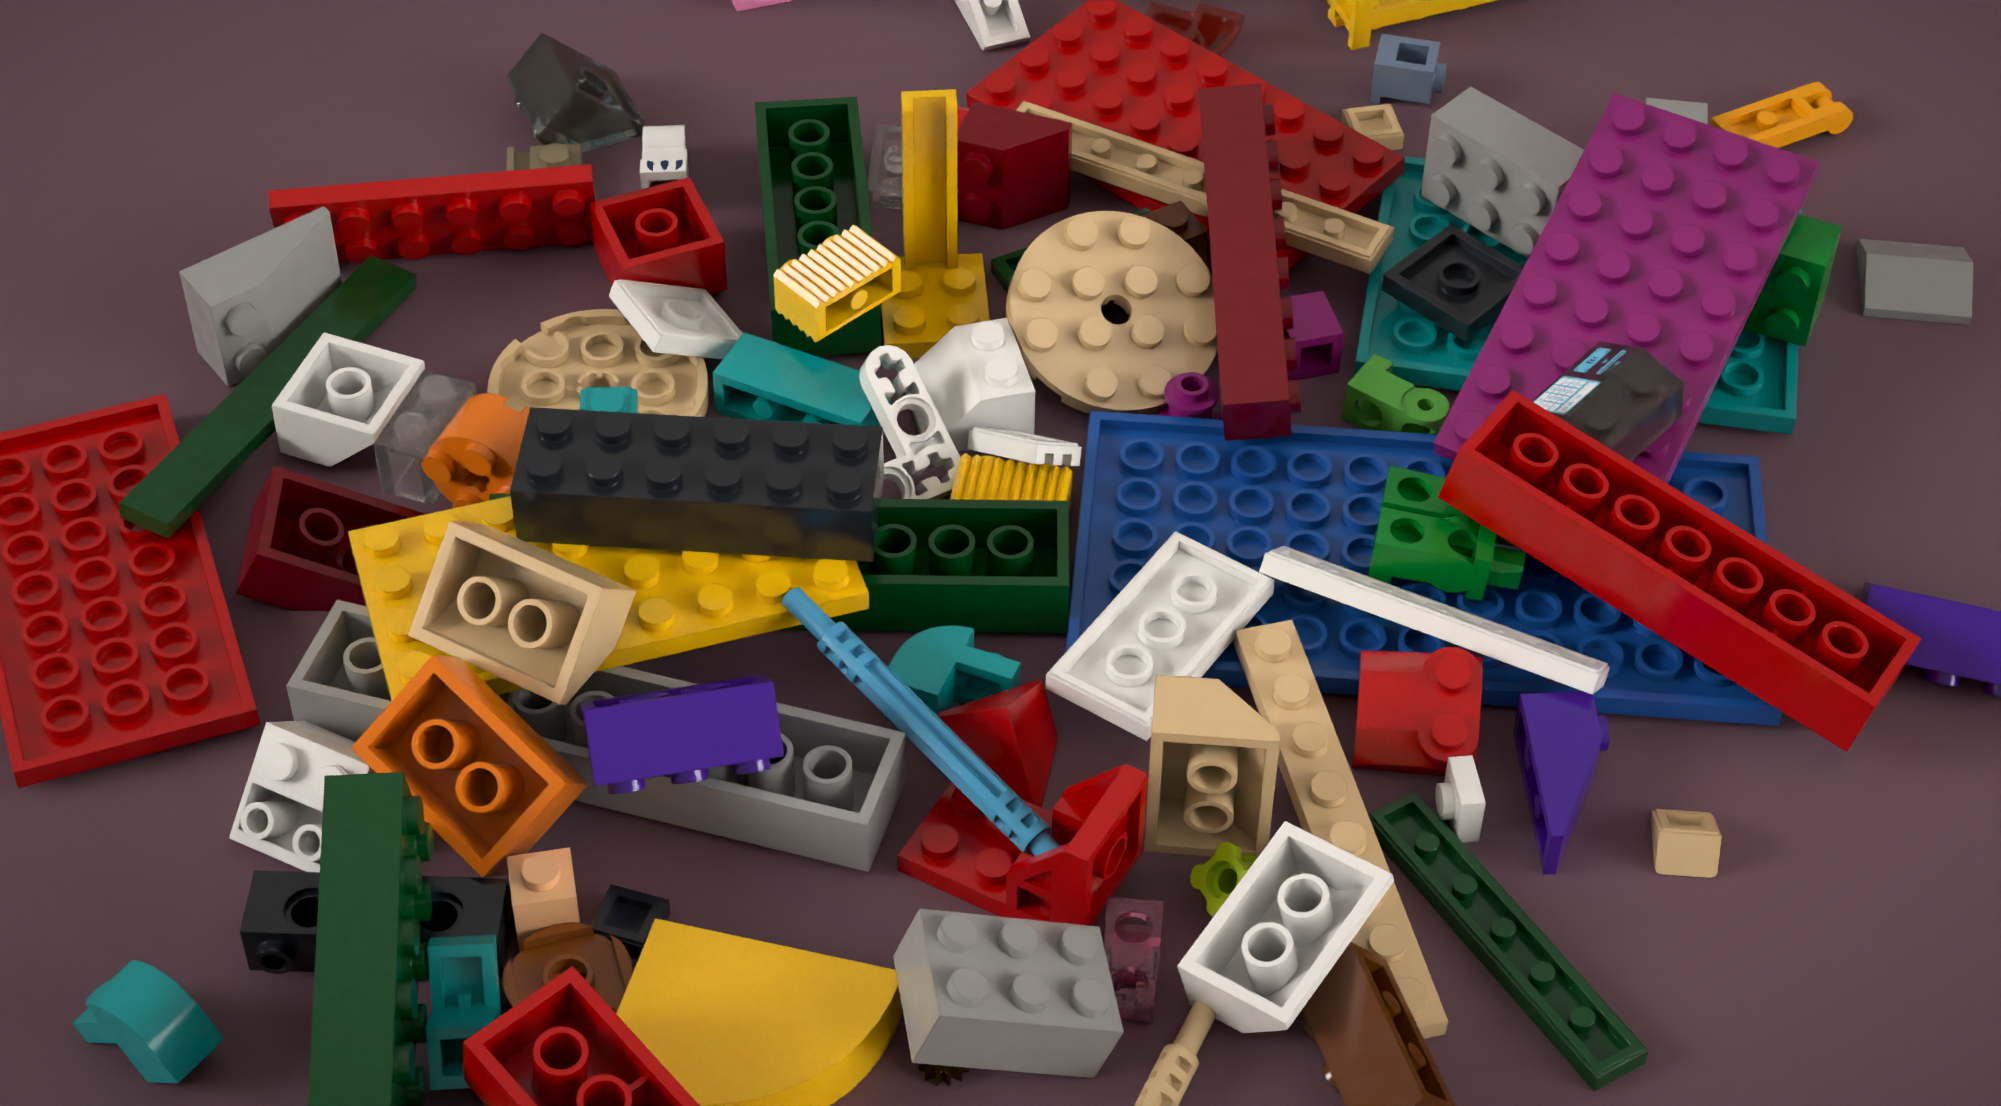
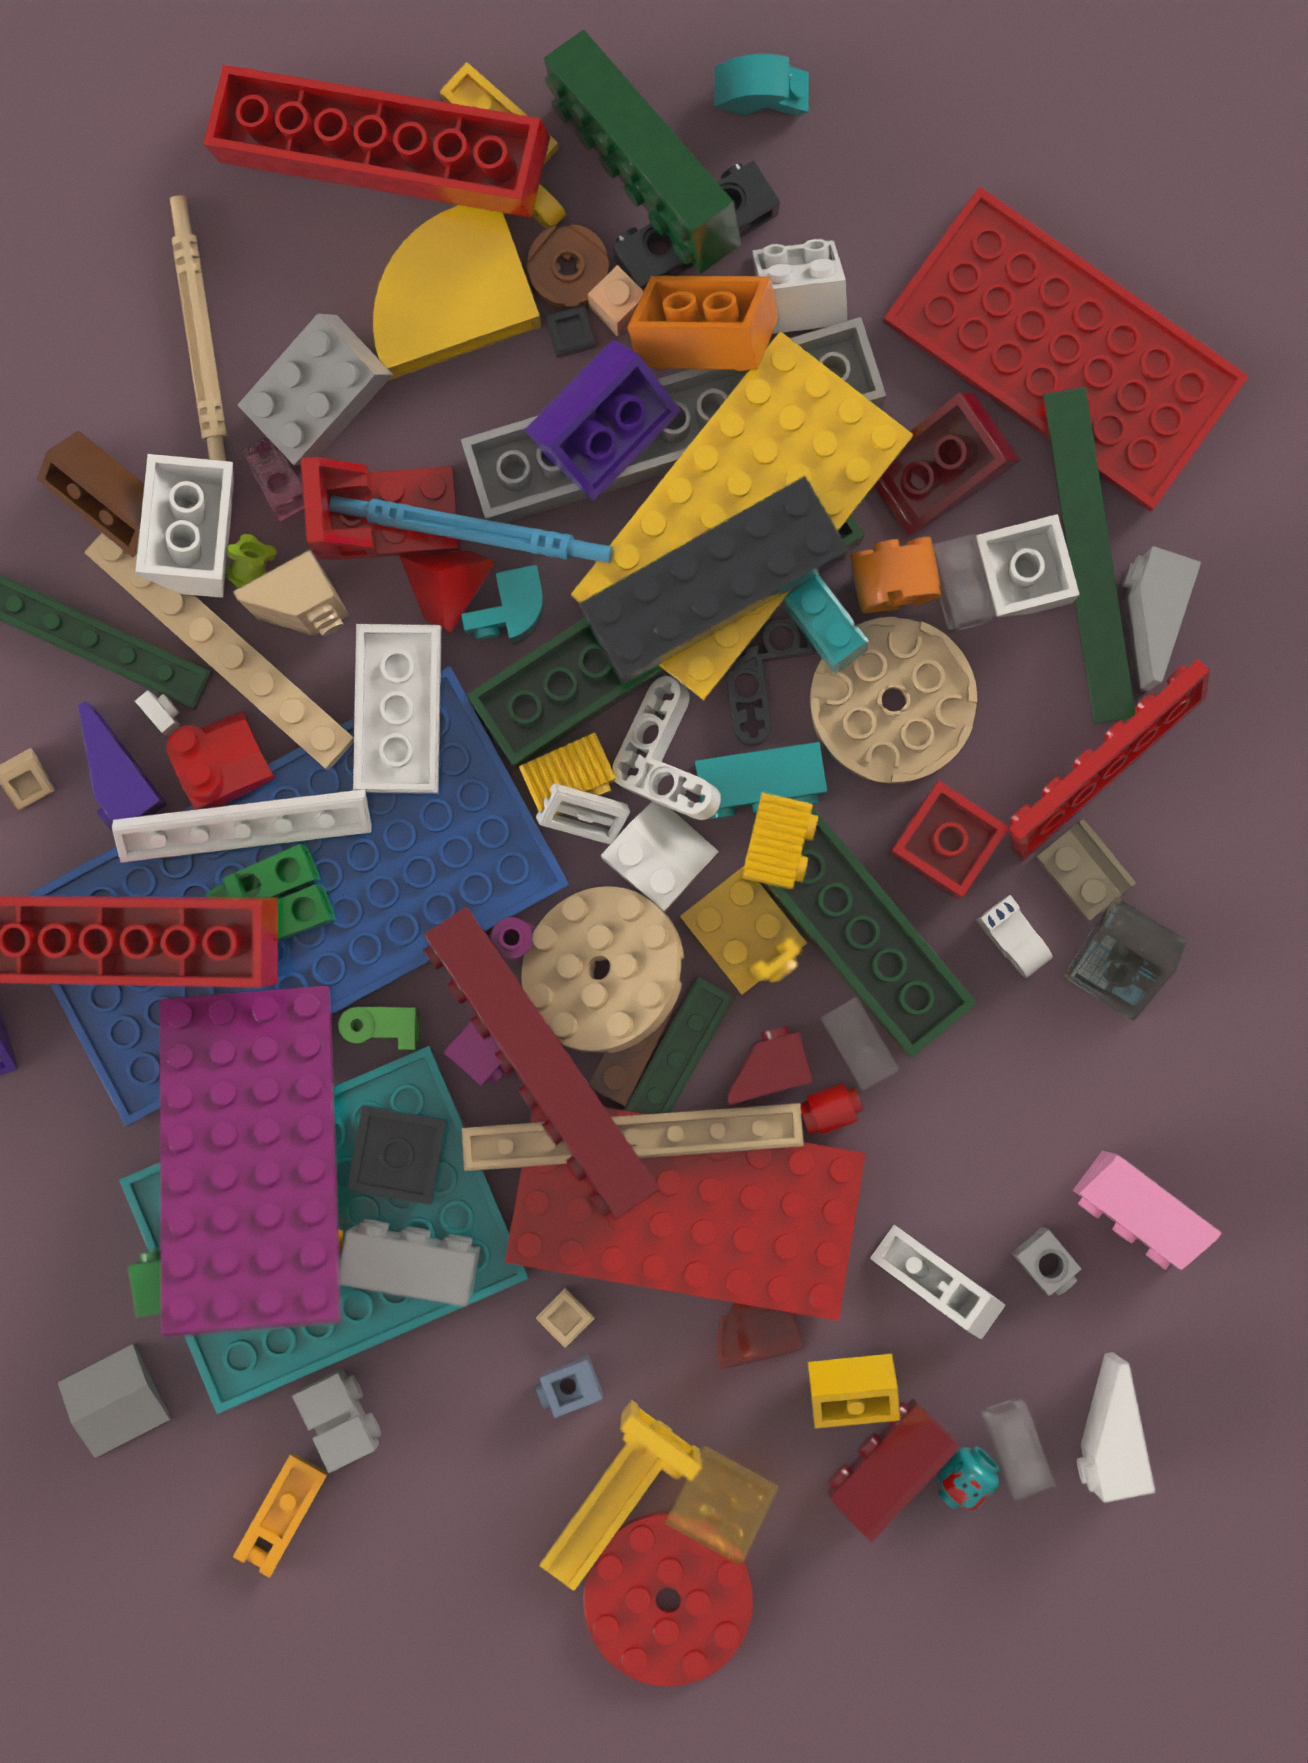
camera: 145 degrees right, 40 degrees up
(462, 1002) = (596, 196): teal brick -> none
(519, 611) = (744, 420): tan slope -> none
(676, 318) = (881, 782): white tile -> none
(1617, 397) = (215, 1045): clear smoke slope -> none

